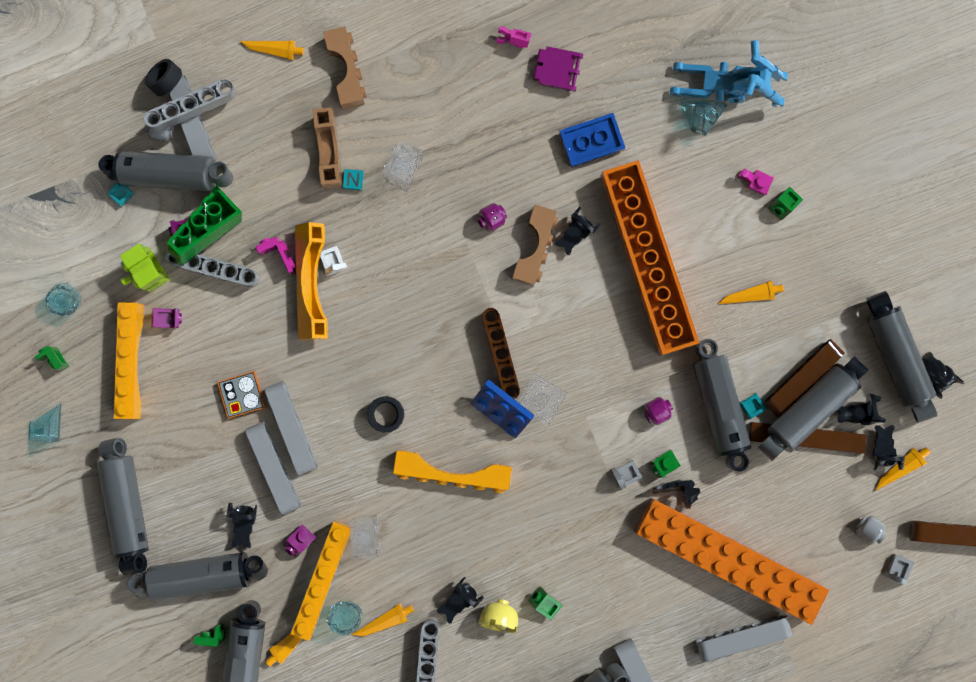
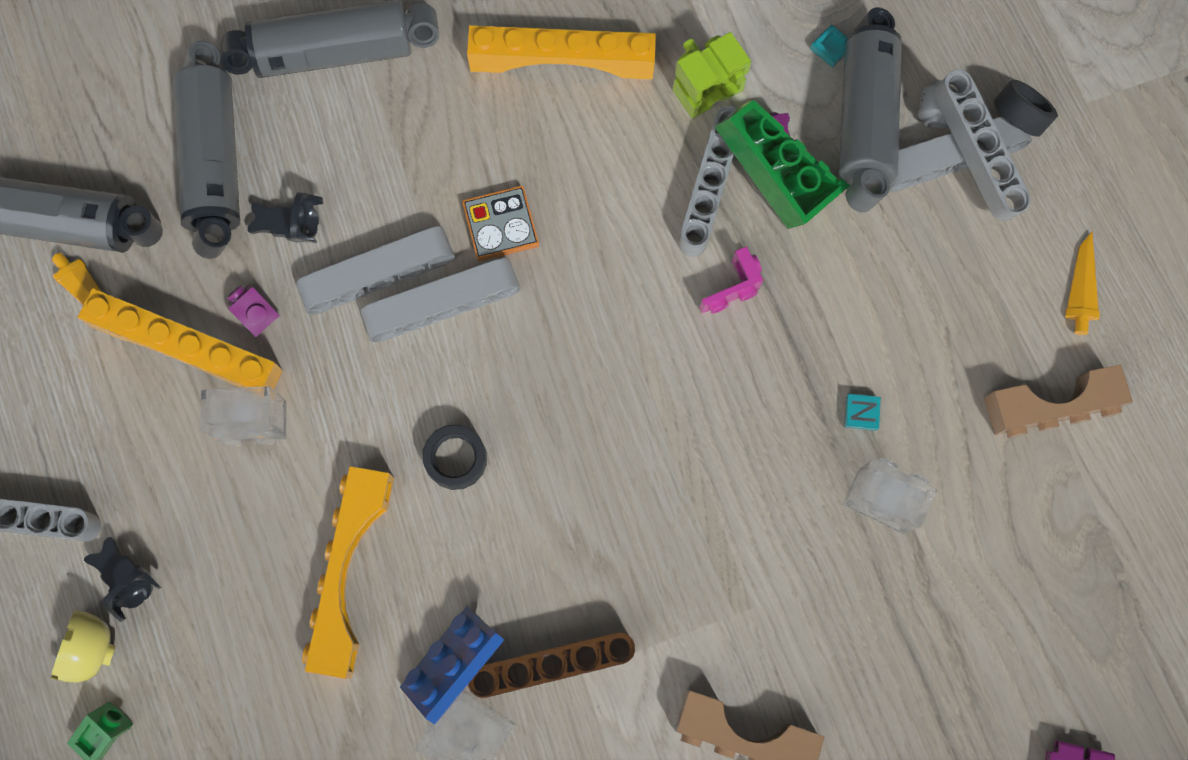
camera: 90 degrees right, 10 degrees down
(166, 318) = (629, 108): magenta bracket -> none
(207, 638) = (107, 167): green bracket -> none
(309, 244) = (741, 333): light orange arch -> none
(328, 148) = (943, 367): medium nougat arch -> none
(332, 261) = (721, 374): white tile -> none
(344, 618) = (113, 379): clear light blue hair -> none
(389, 619) = (106, 457): light orange bar -> none
(492, 217) = (799, 655): magenta head -> none
(516, 37) = (1132, 712): dark pink plate -> none

